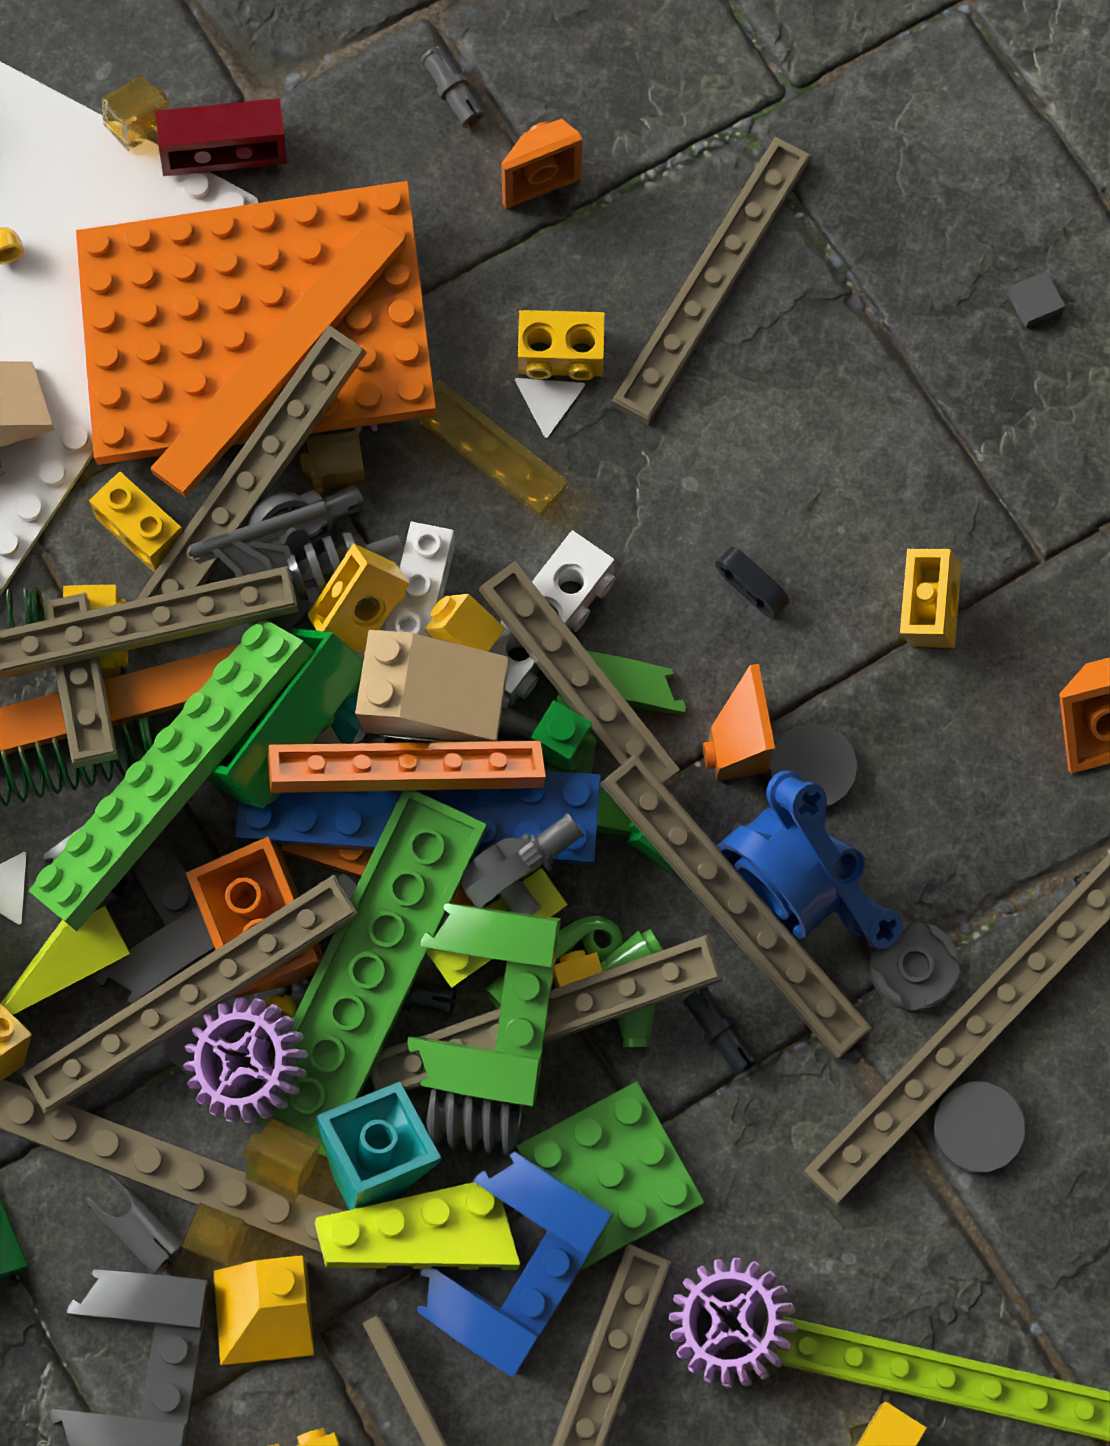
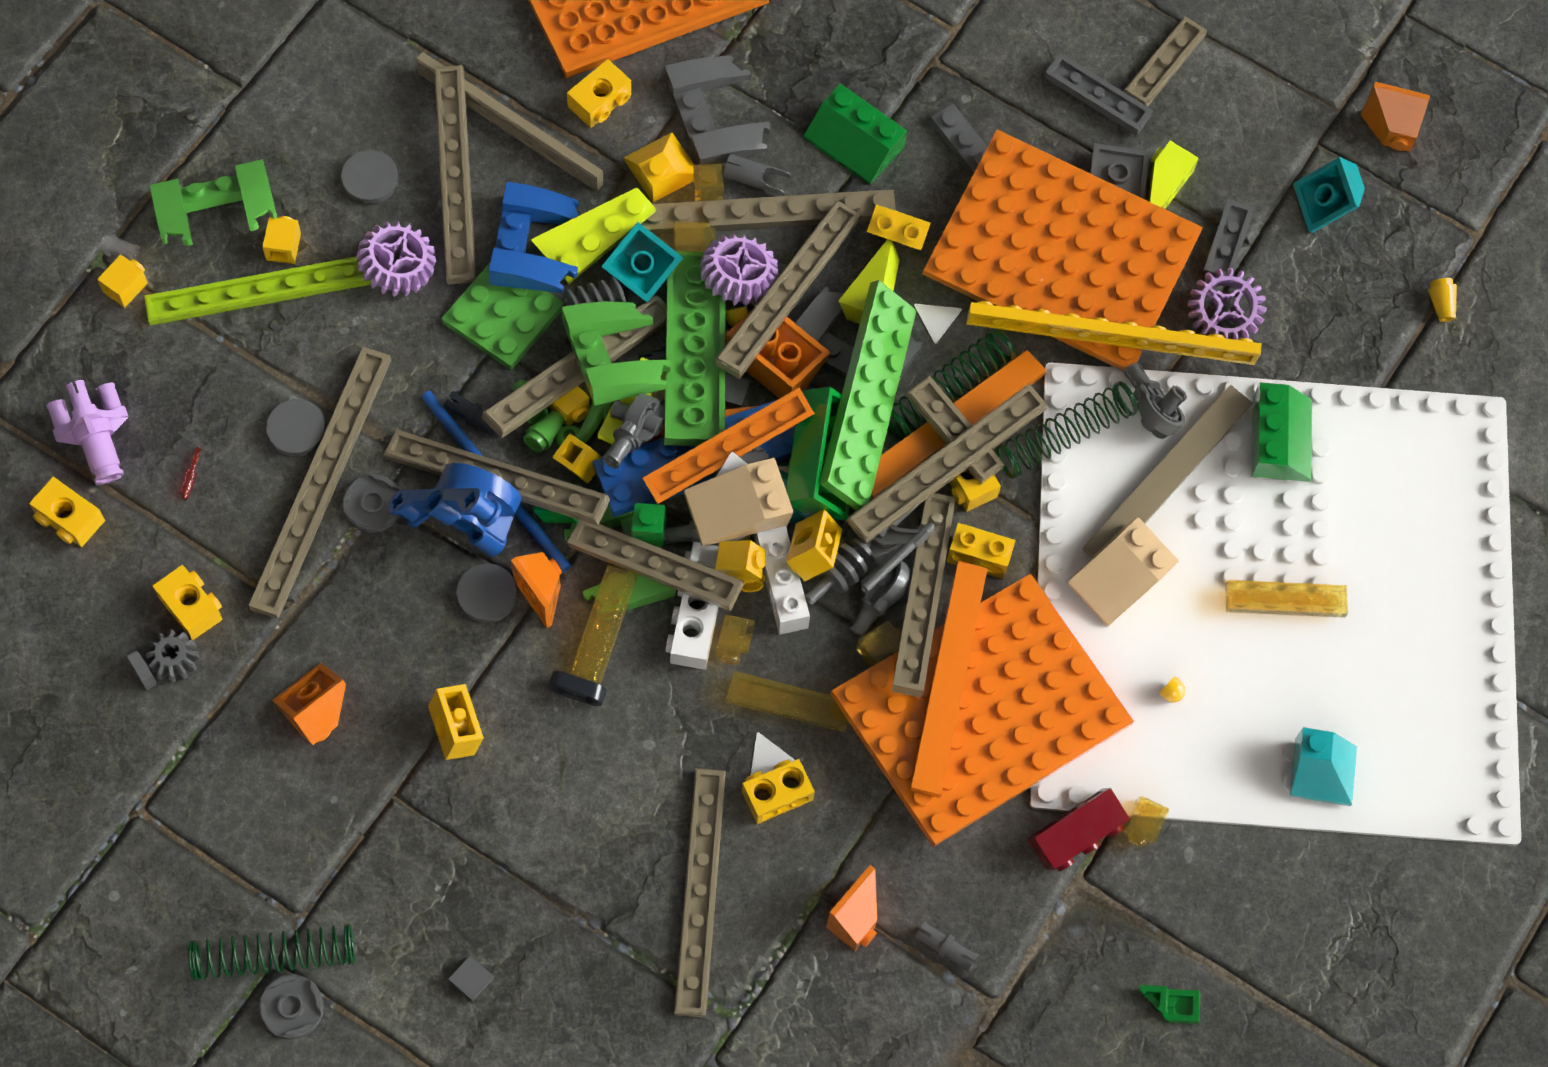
camera: 150 degrees right, 5 degrees down
(525, 545) = (734, 639): none -> clear yellow brick
(608, 885) = (577, 458): none -> yellow brick
(683, 643) = (604, 624): none -> clear yellow plate
(741, 962) = (521, 513): none -> blue piece

